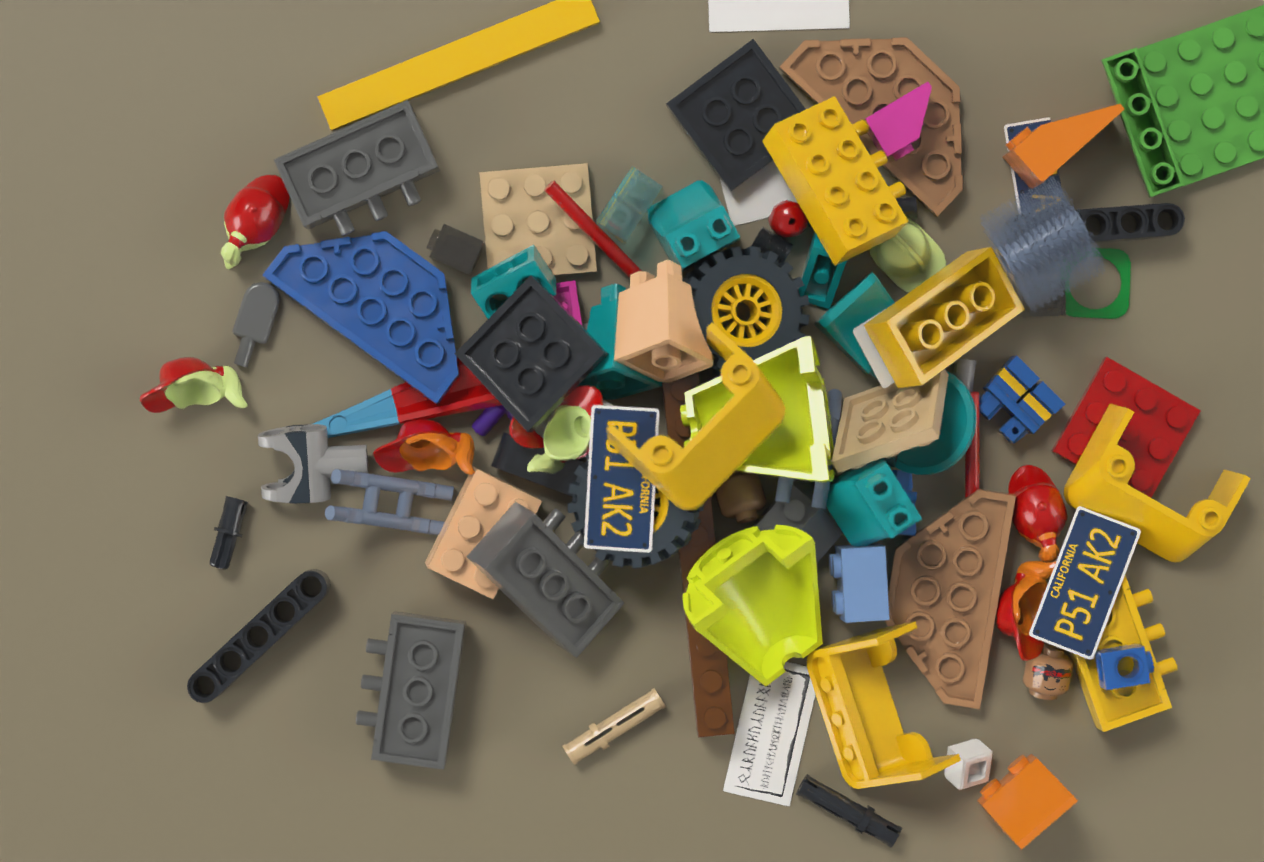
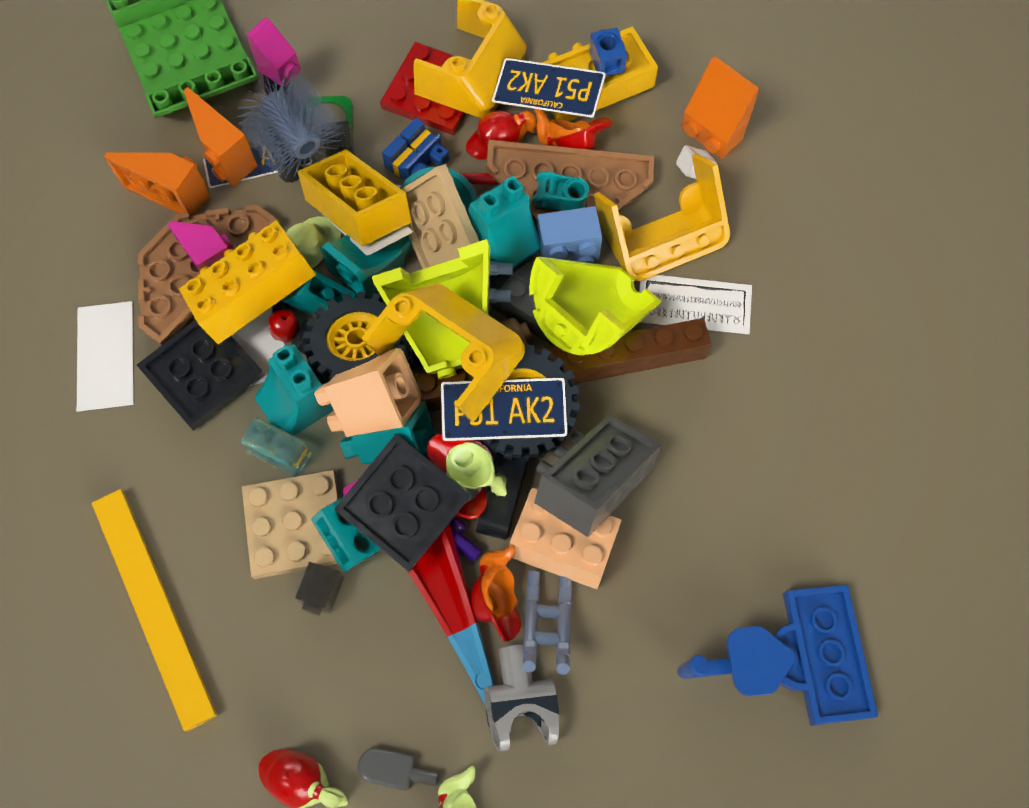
camera: 95 degrees left, 20 degrees down
(228, 531) = (593, 773): black axle -> none
(243, 644) = (701, 737): black beam -> none
(324, 792) = (811, 655): none -> blue plate
(358, 168) = (247, 683): dark grey piece -> none
(380, 301) = (367, 653): blue plate -> none
(415, 689) = (710, 581): dark grey piece -> none
(577, 750) = (721, 428): tan pin -> none
(584, 221) = (298, 472): red bar -> none
(860, 817) = (751, 230): black pin -> none
(927, 577) = (559, 190): none -> teal piece
(1003, 77) = (161, 179): none -> orange slope
(1048, 673) = (622, 114): medium nougat head -> none
(1166, 224) = (273, 52): none -> dark pink slope

